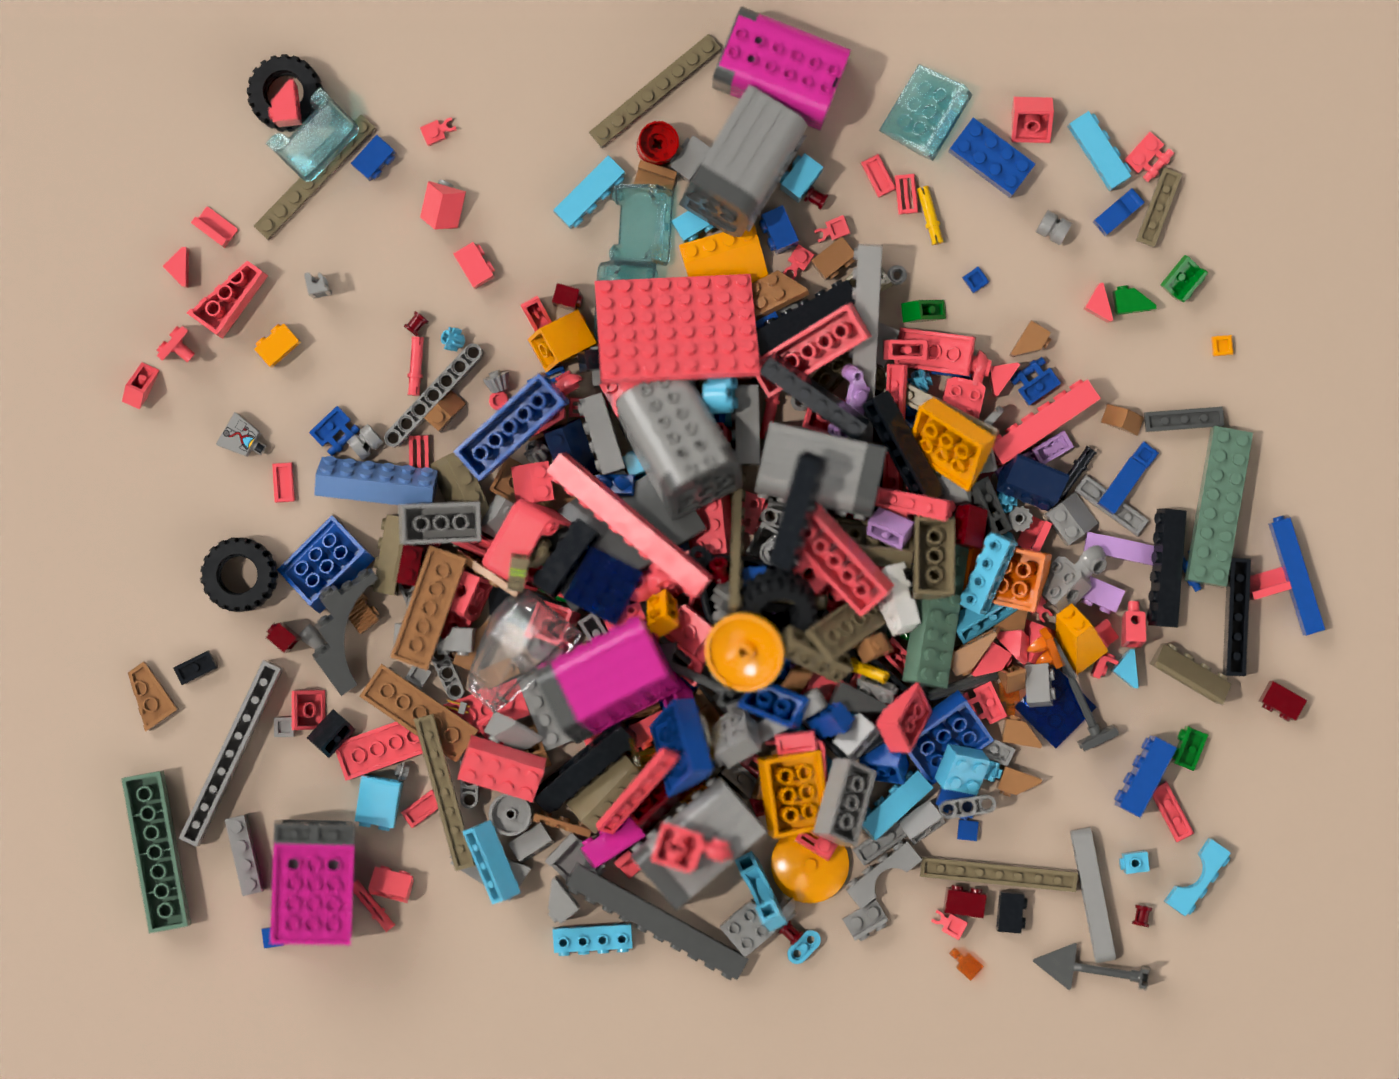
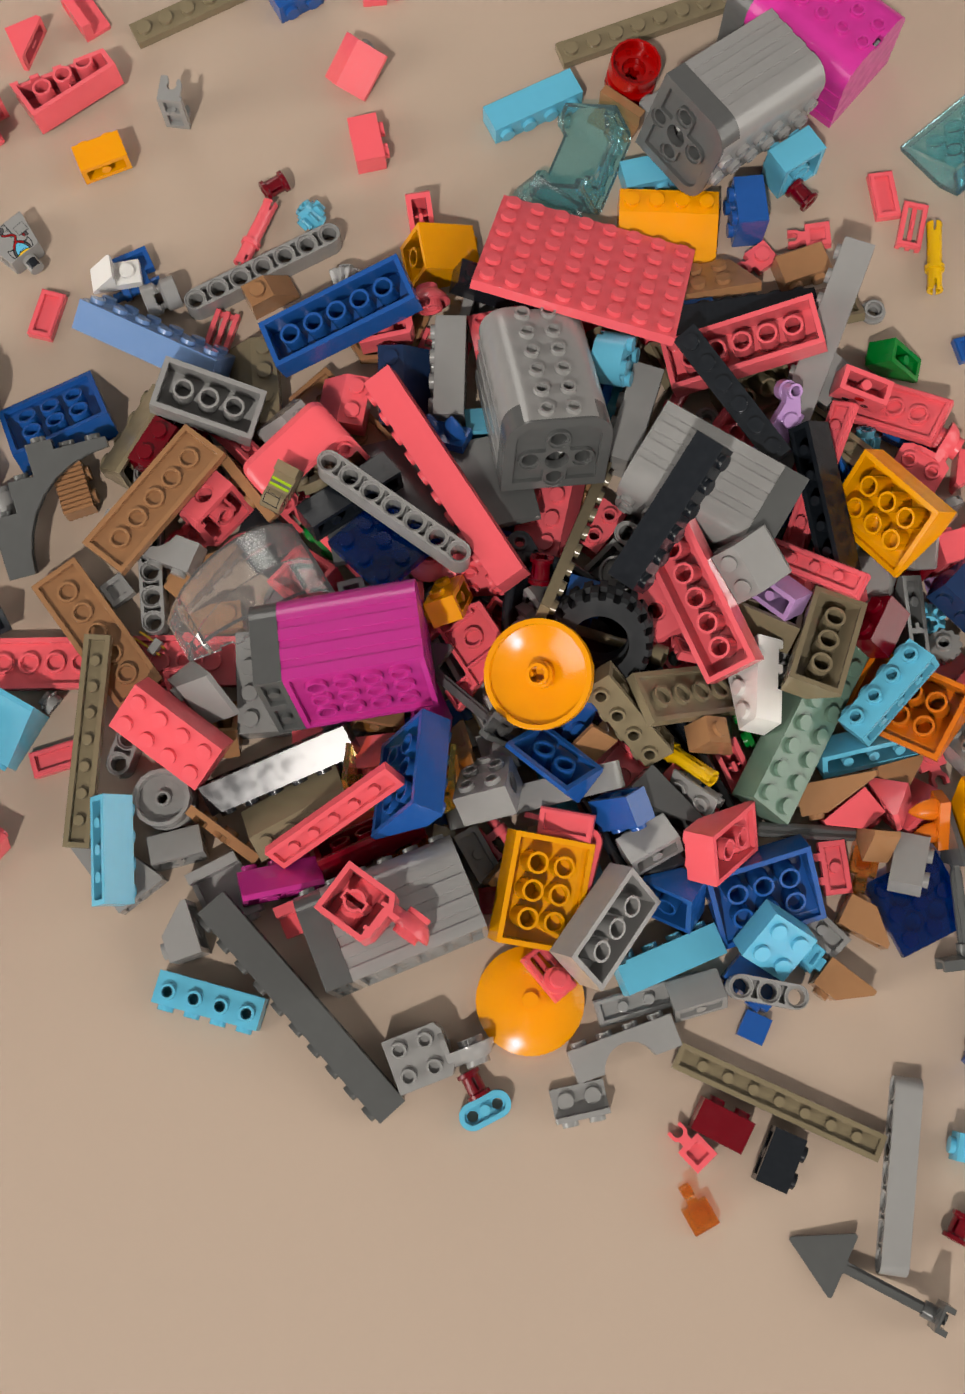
camera: 20 degrees right, 10 degrees down
(326, 438) = (115, 276): none -> white slope
(536, 451) = (363, 368): light grey gear -> none
(567, 297) = (463, 204): dark red piece -> none
(596, 558) = (397, 522): none -> light grey beam
(761, 890) = (454, 1029): medium azure arch -> none
(864, 522) = (751, 563): none -> light grey slope

